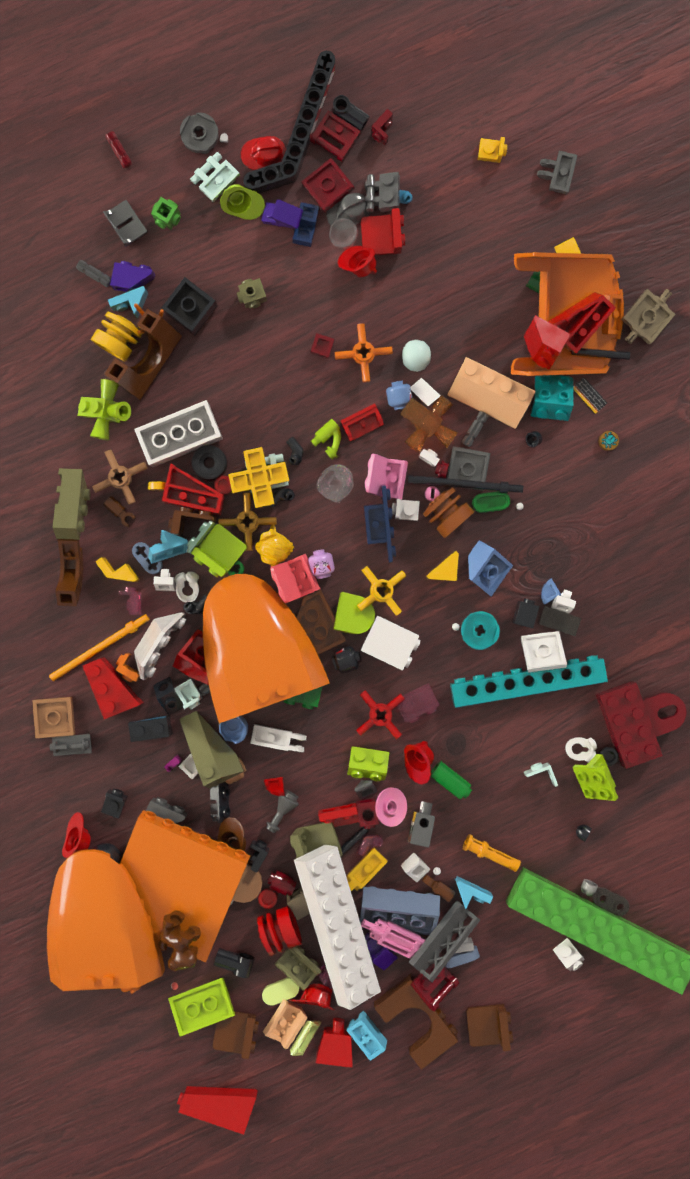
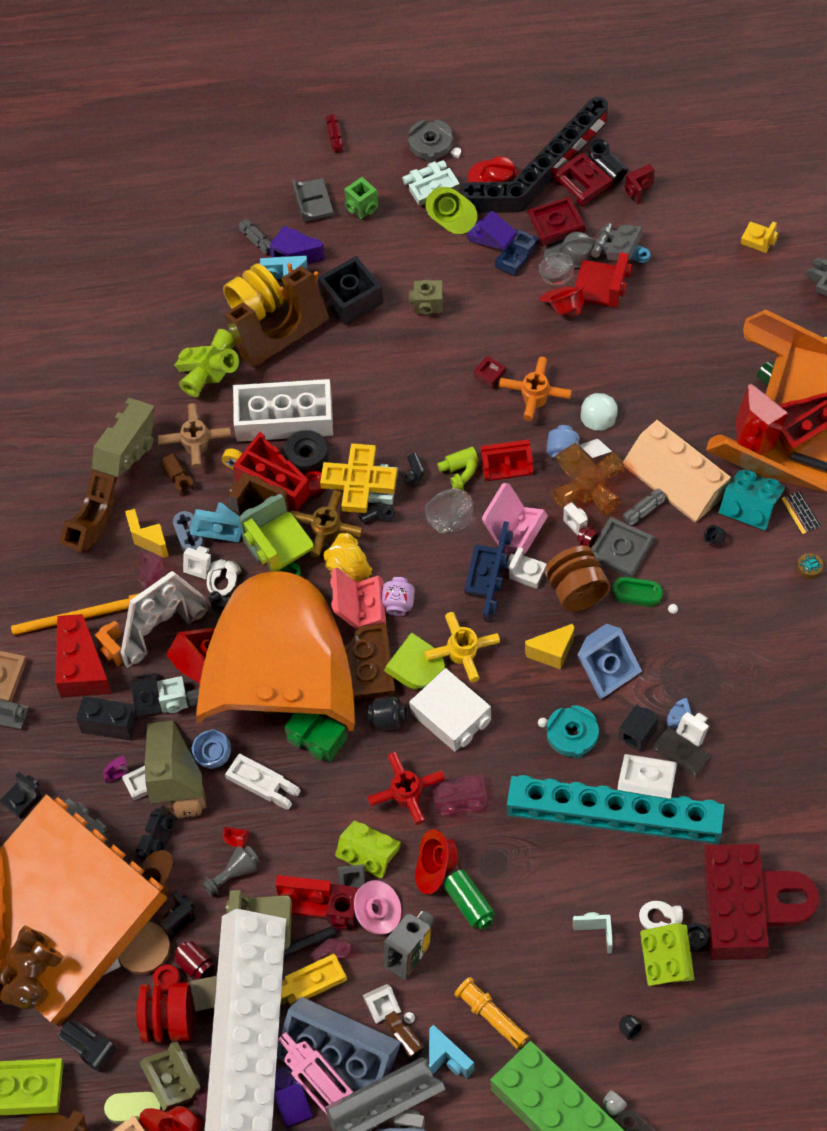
camera: 20 degrees right, 30 degrees down
(502, 487) = (656, 574): black bar -> none

